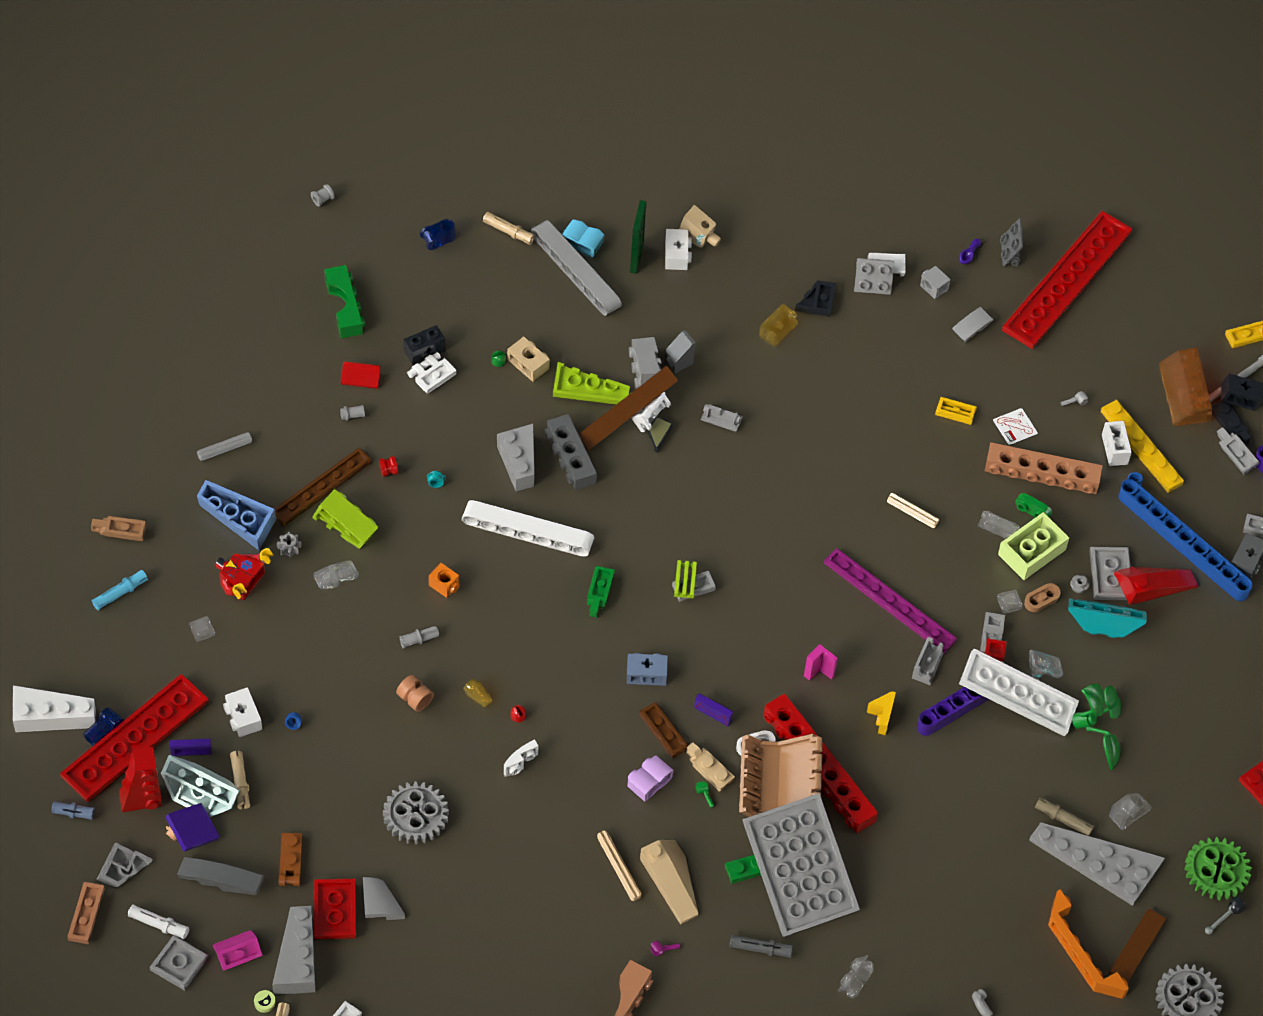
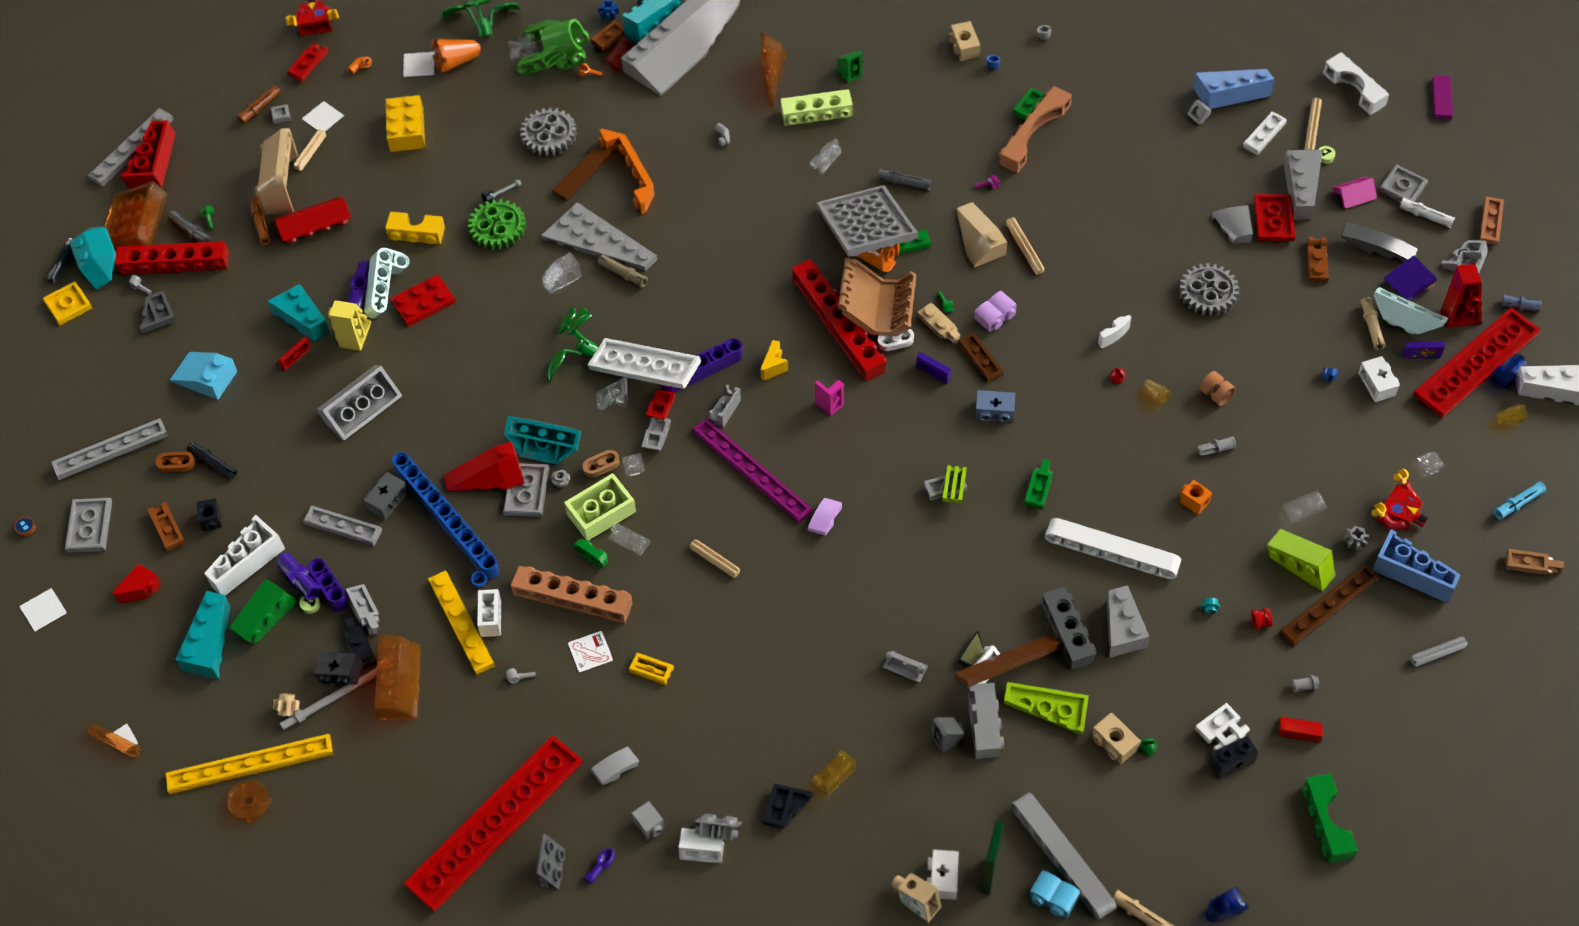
camera: 170 degrees left, 0 degrees up
(108, 679) = (1513, 414): none -> clear yellow cone
(811, 550) = (824, 516): none -> lavender slope

